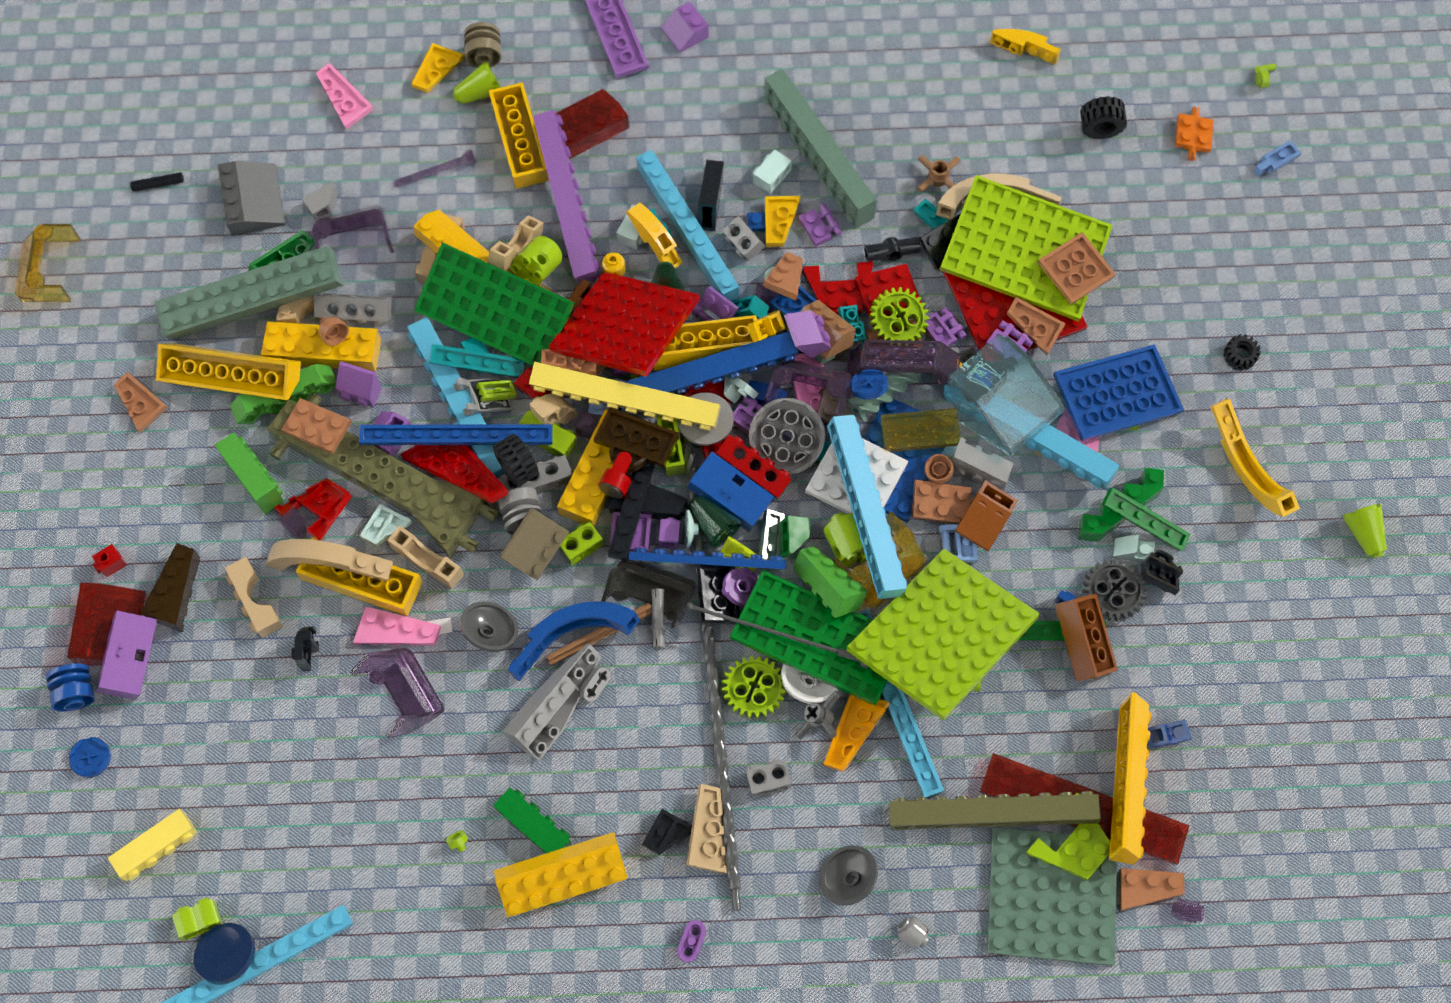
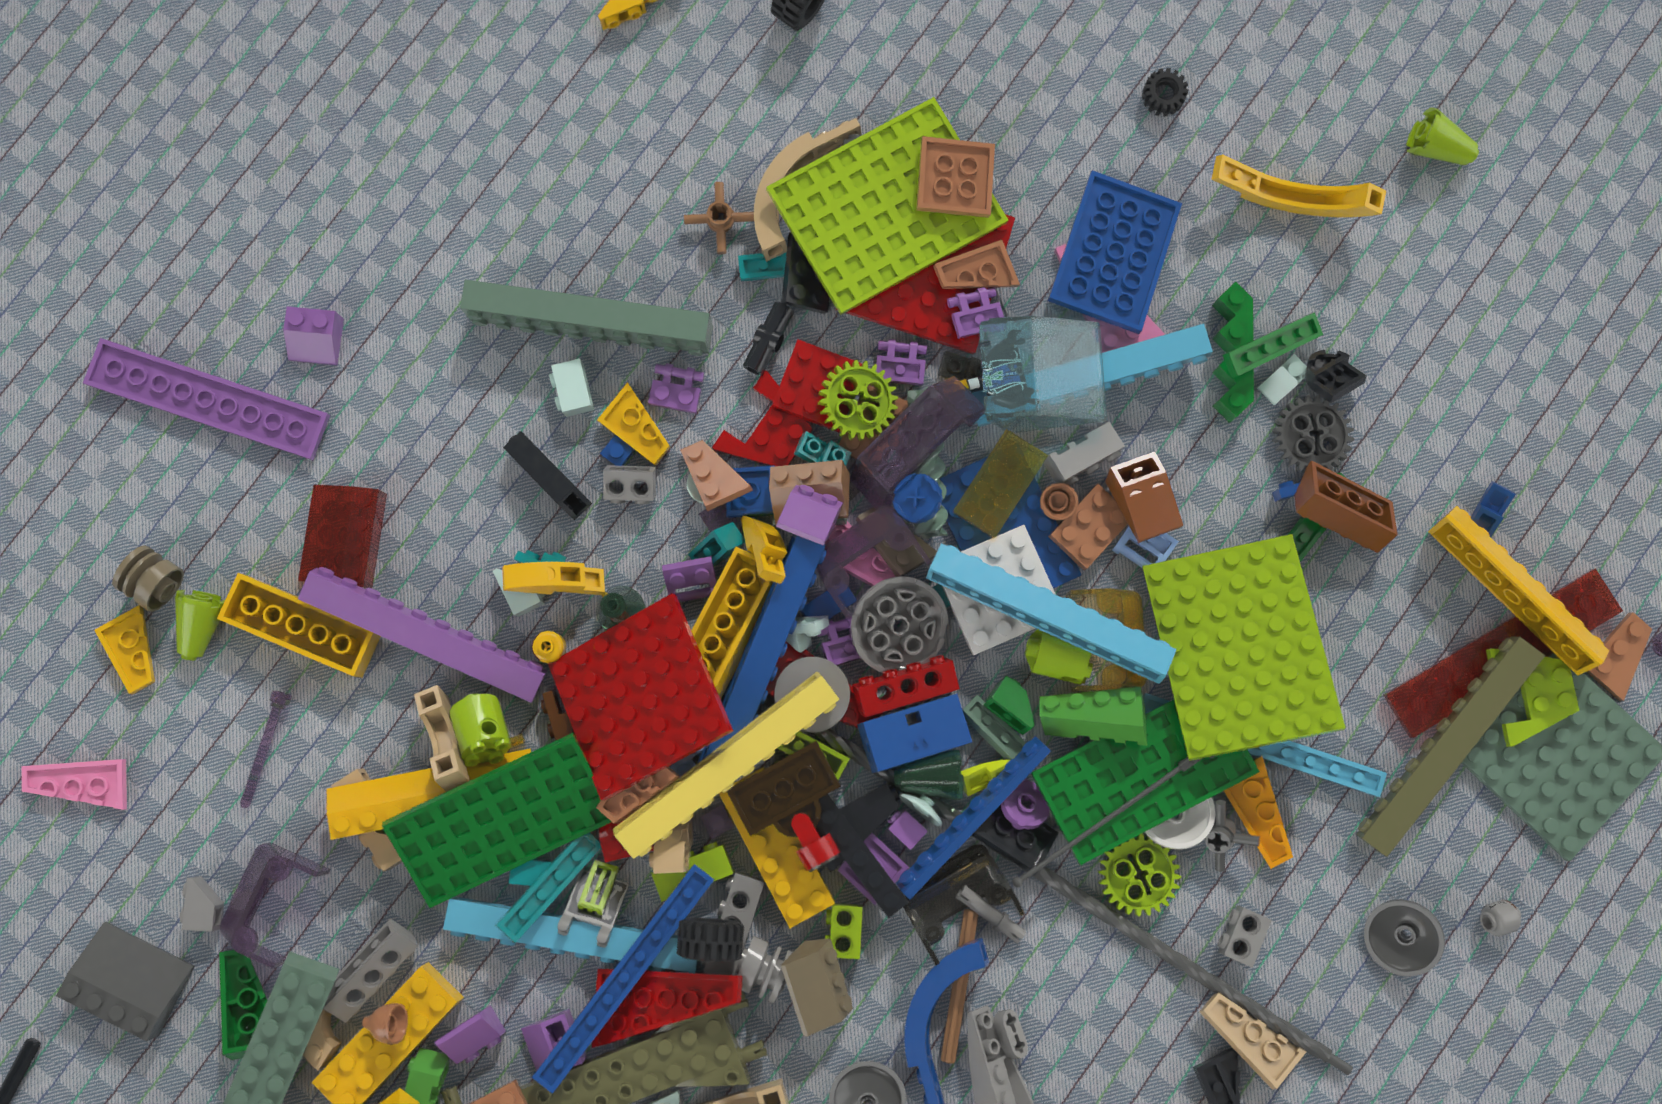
camera: 50 degrees left, 15 degrees up
(687, 225) = (564, 530): medium azure brick -> none

